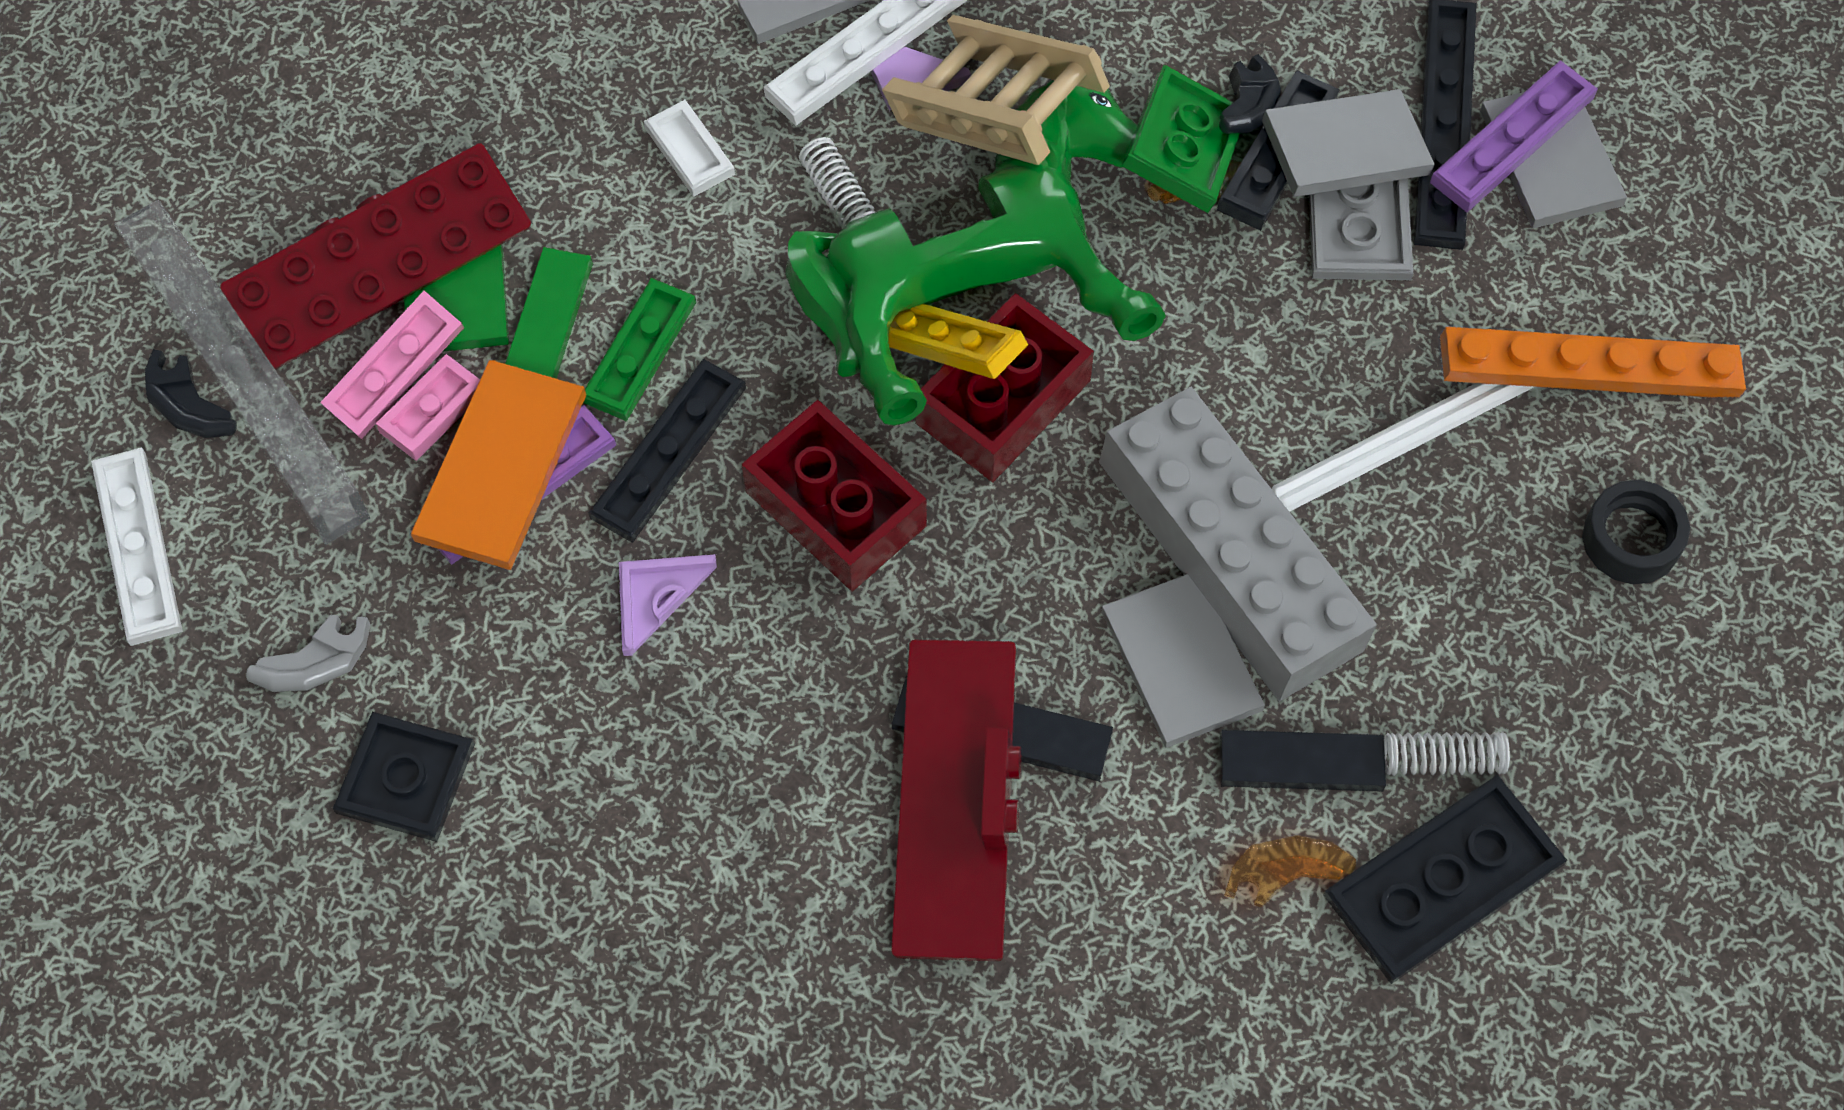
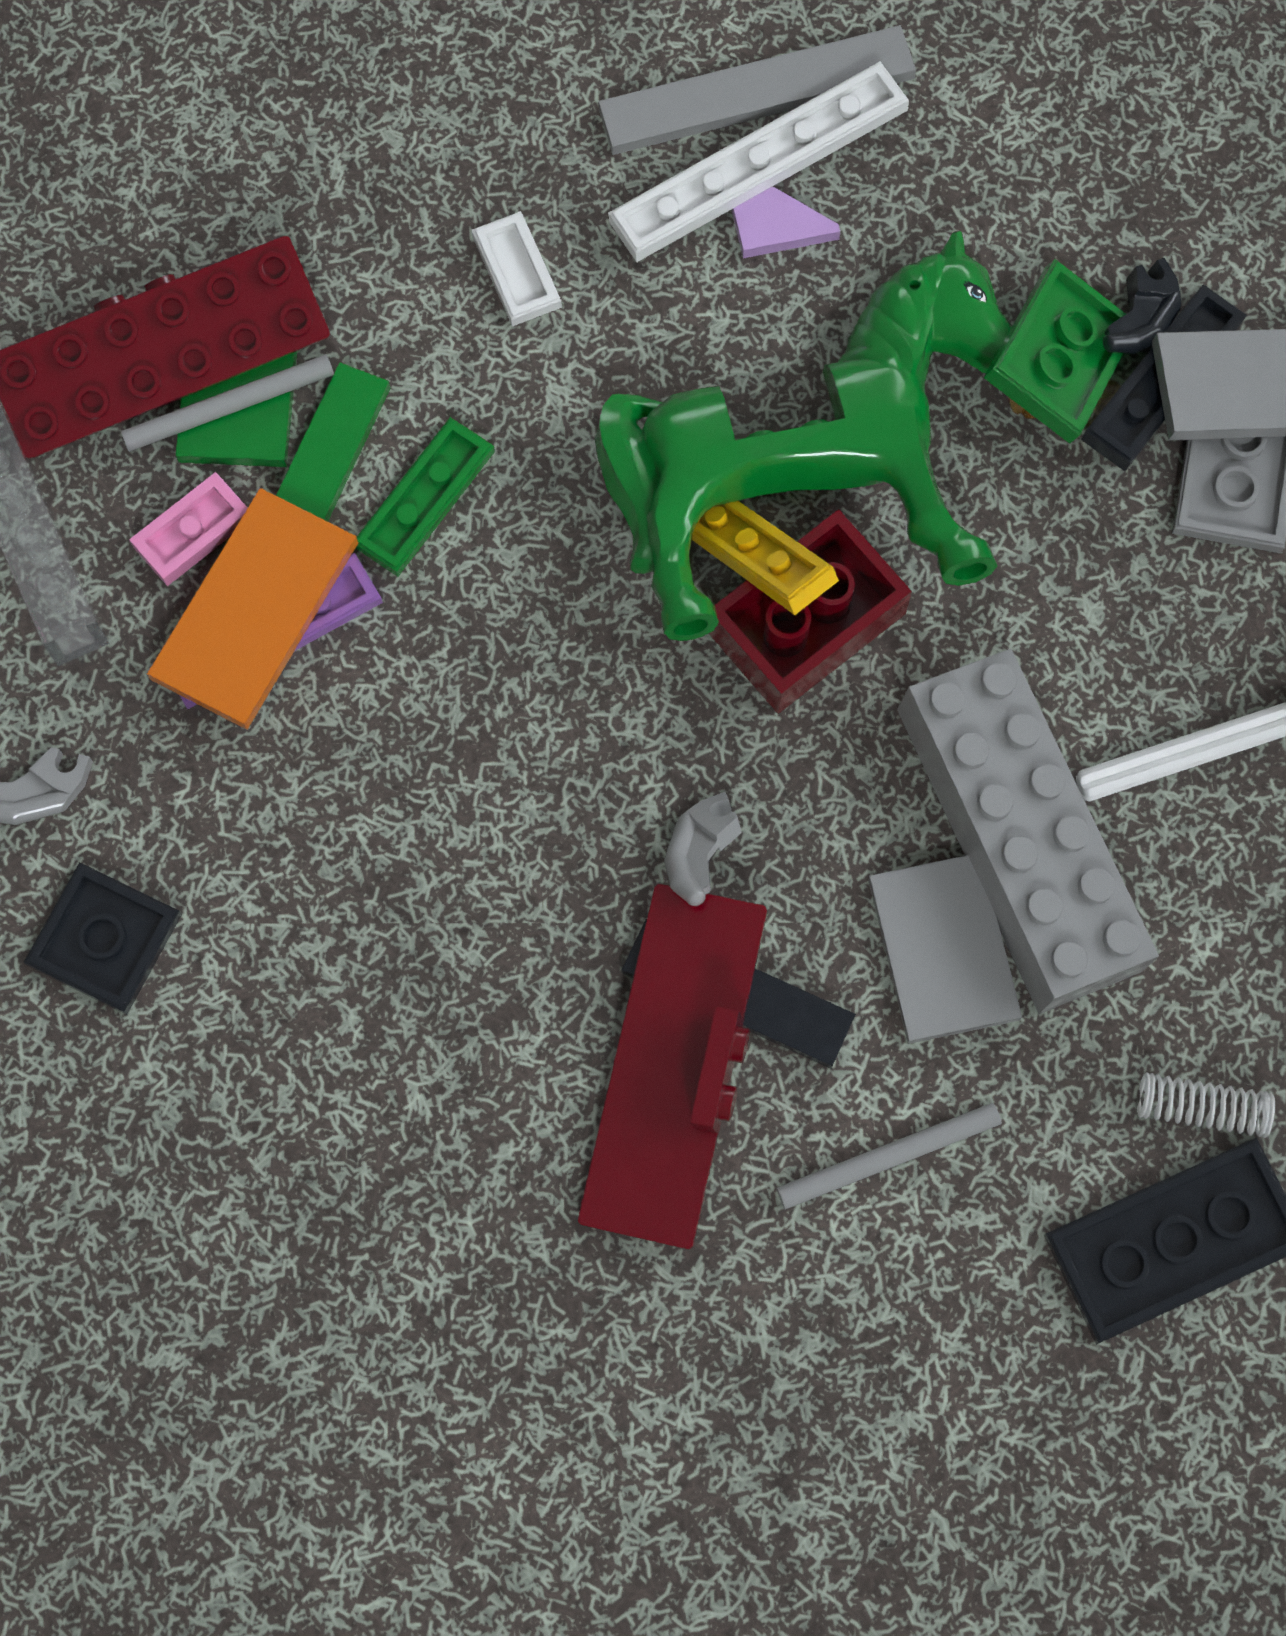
camera: 10 degrees right, 10 degrees up
(392, 364) = (156, 475): bright pink plate -> none
(457, 288) = (227, 402): none -> light grey bar
(654, 591) = (396, 776): lavender tile -> none
(667, 450) = (436, 618): black tile -> none
(807, 164) = (642, 310): white piece -> none
(835, 495) = (604, 705): dark red brick -> none
(938, 600) = (694, 841): none -> light grey piece
(994, 124) = (845, 302): tan fence -> none
(1167, 848) = (888, 1155): none -> light grey bar
(1283, 860) = (1010, 1190): clear orange piece -> none
(1302, 760) = (1051, 1084): black tile -> none

